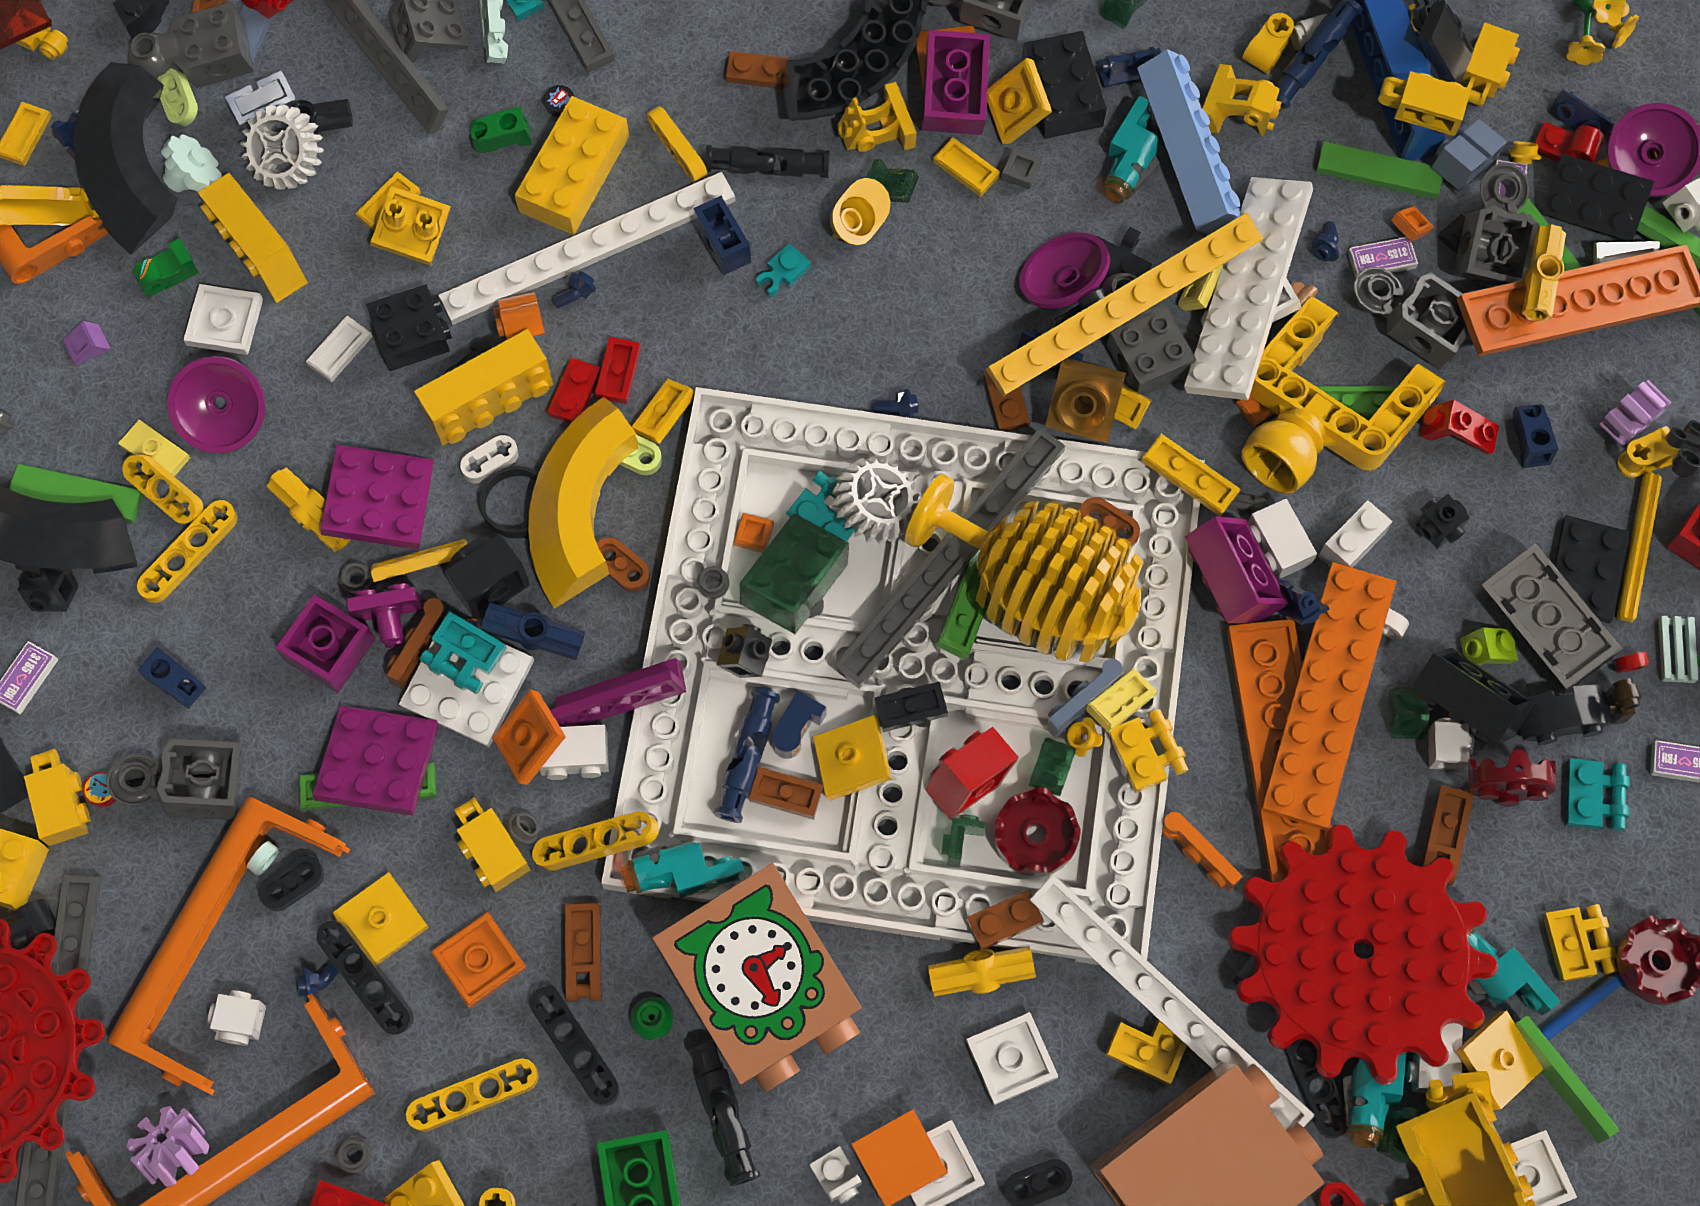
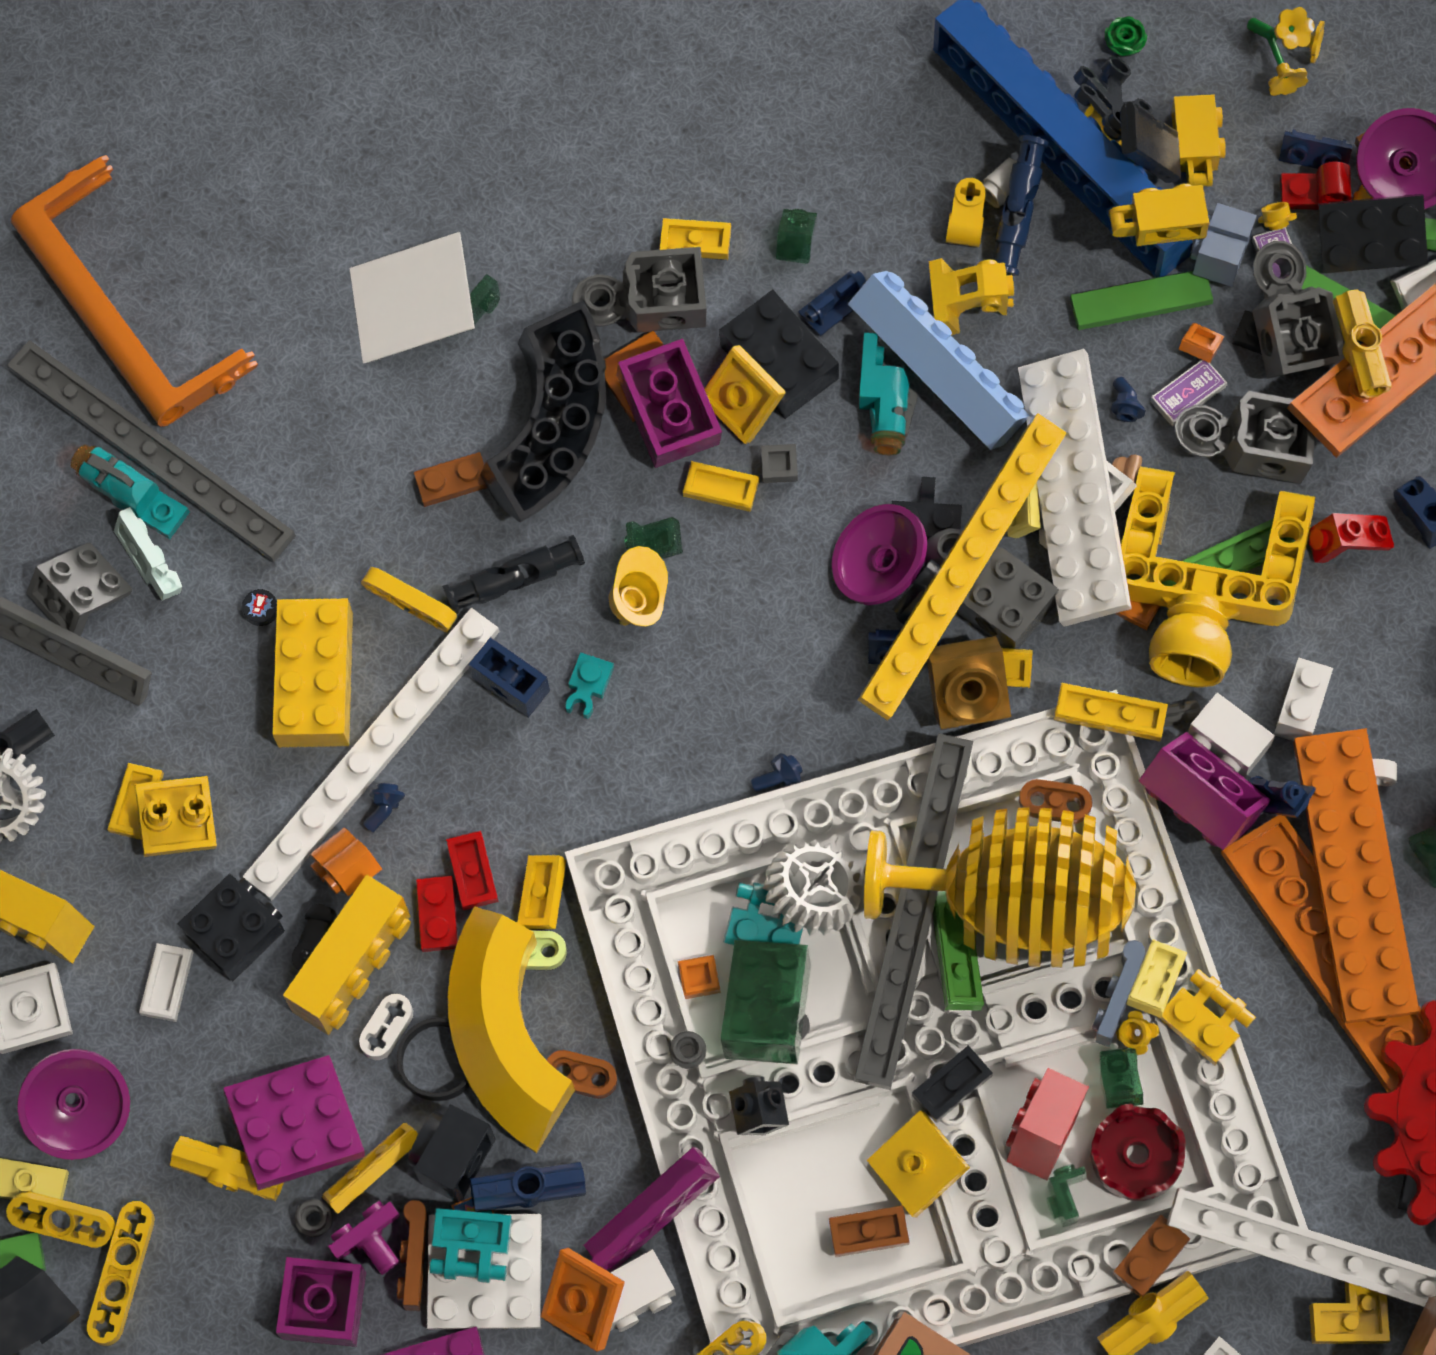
camera: 20 degrees left, 0 degrees up
(500, 130) = (215, 669): green leg -> none
(743, 767) = (811, 1216): dark blue piece -> none
(794, 724) = (841, 1166): dark blue leg -> none
(893, 119) = (621, 469): yellow tile -> none
(1008, 410) = (893, 732): dark orange plate -> none
(1199, 850) = (1303, 1093): orange plate -> none
(1442, 520) = (1379, 642): black brick -> none

